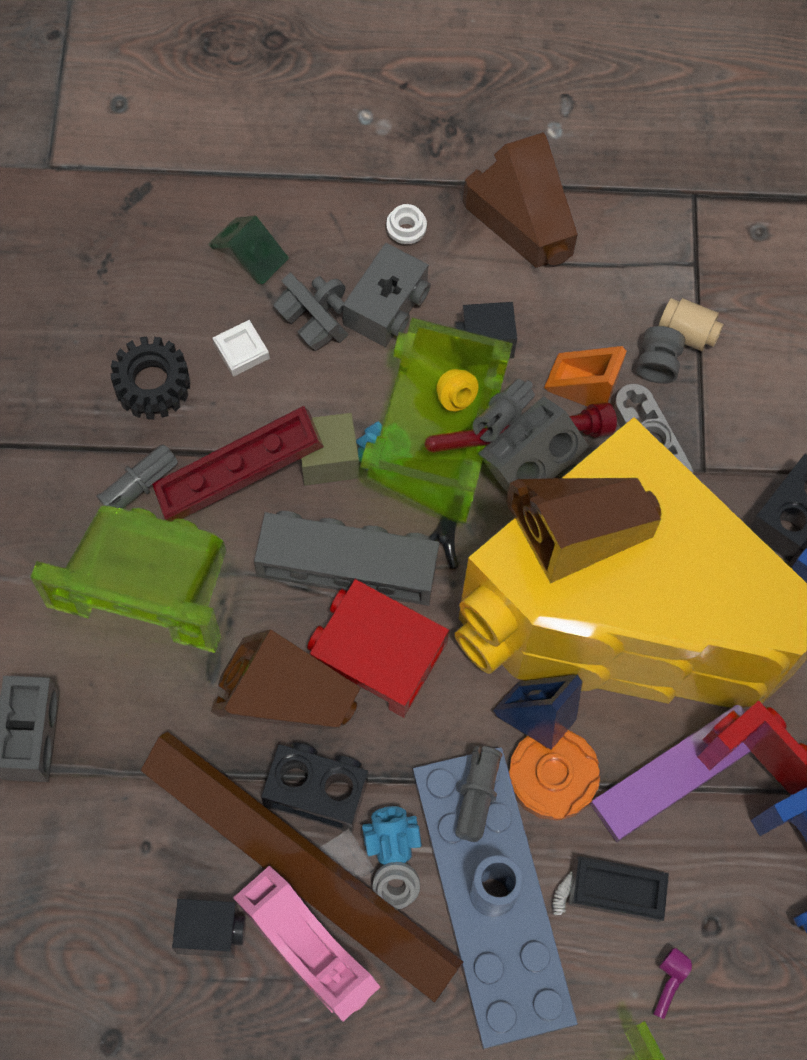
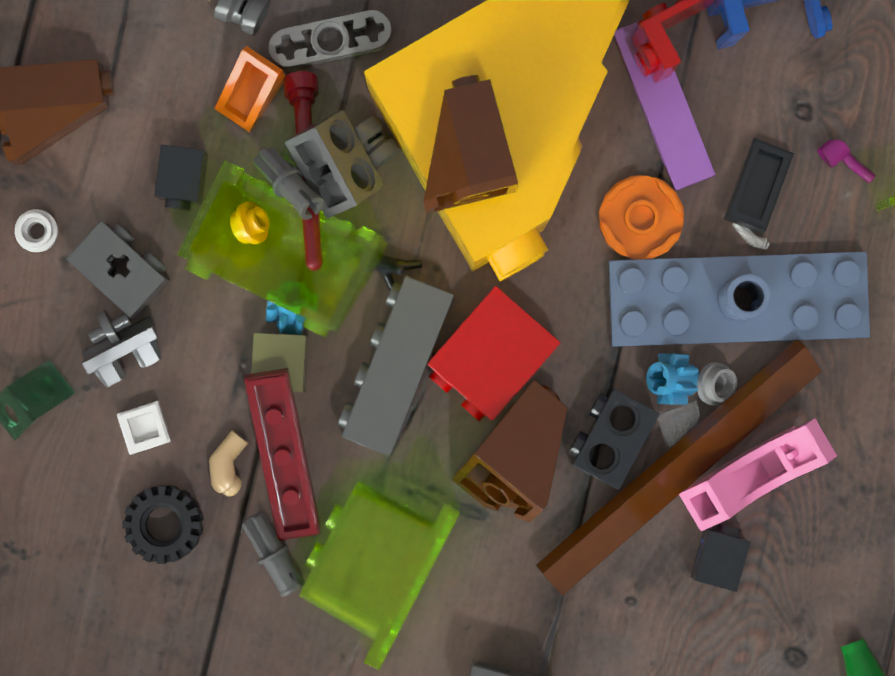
camera: 75 degrees left, 20 degrees up
(218, 419) = (222, 465): none -> tan arm
(478, 793) = (656, 293): dark grey axle -> none
(542, 707) = (582, 217): dark blue slope -> none

